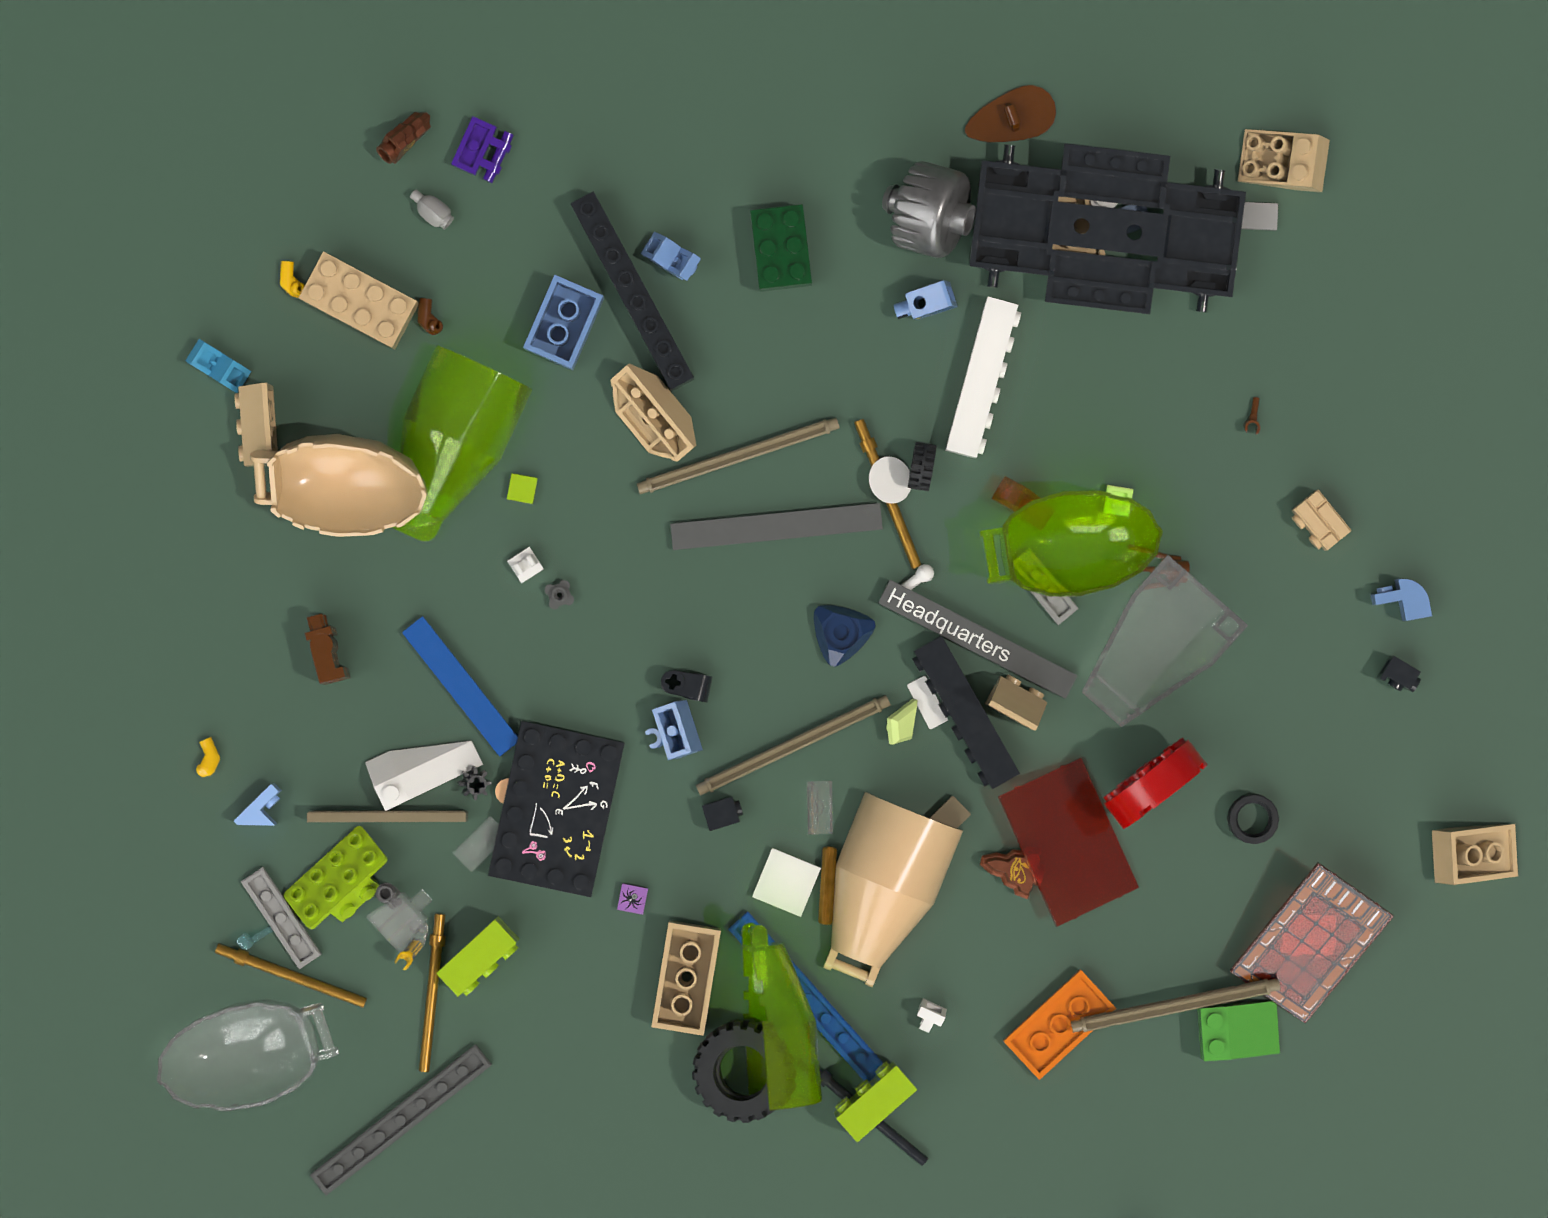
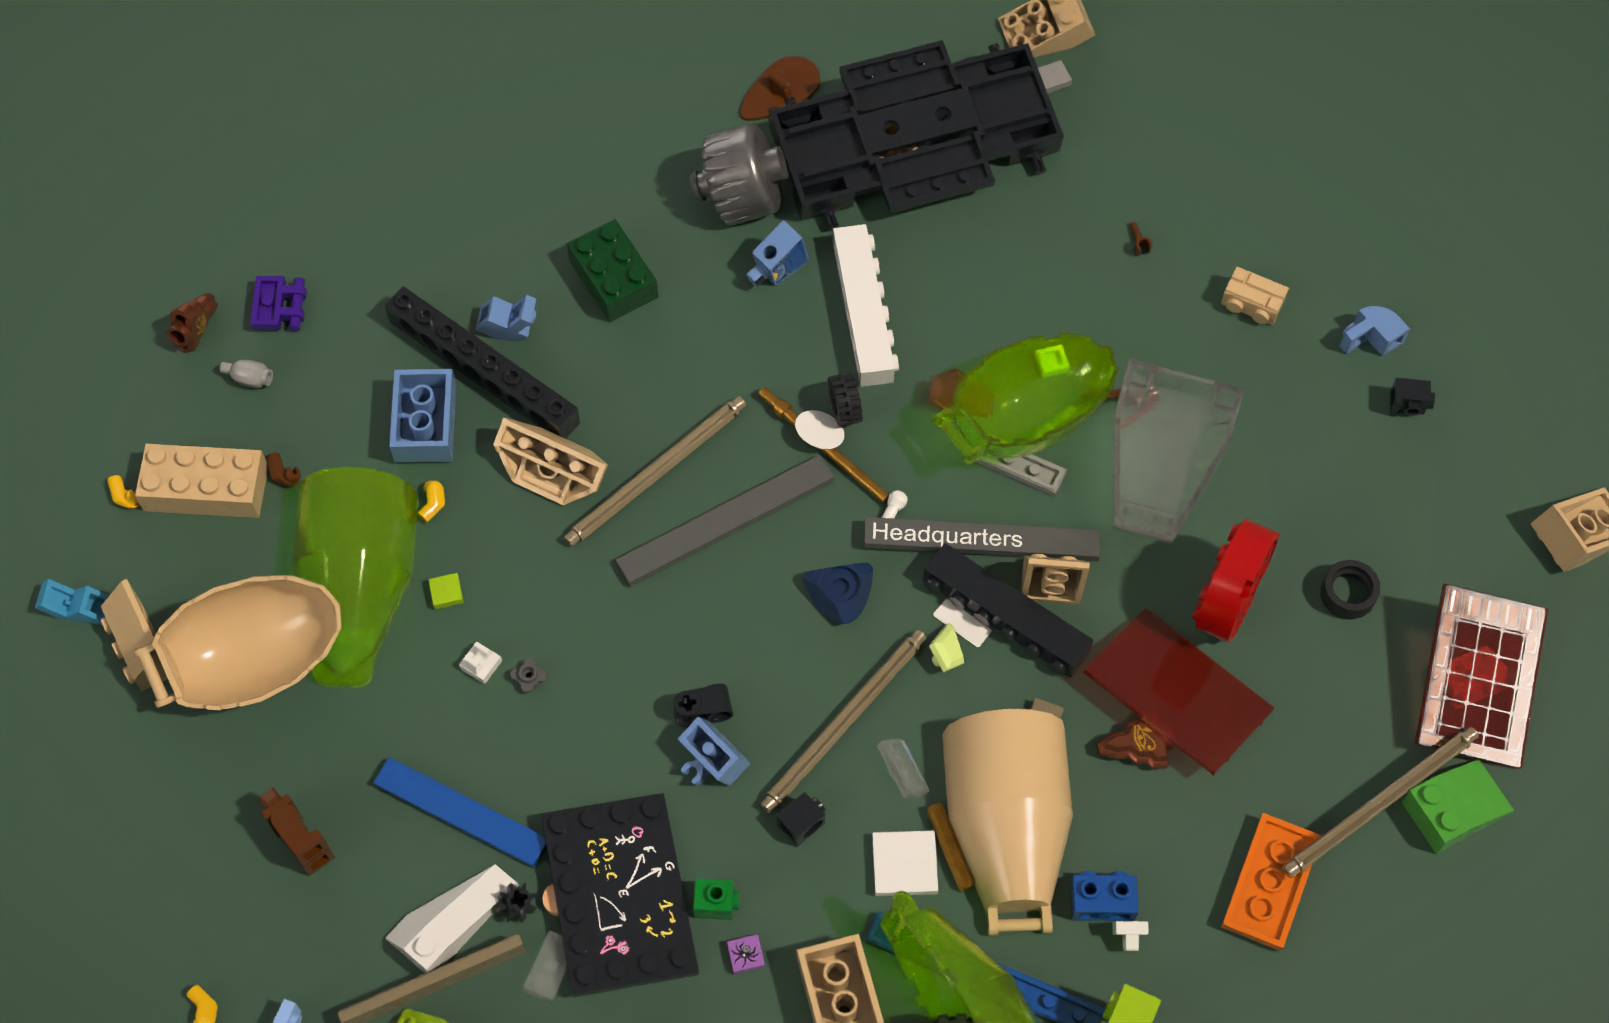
camera: 25 degrees left, 25 degrees down
(545, 400) = (435, 500): none -> yellow arm
(627, 847) = (715, 899): none -> green brick
(923, 979) = (1104, 897): none -> blue brick

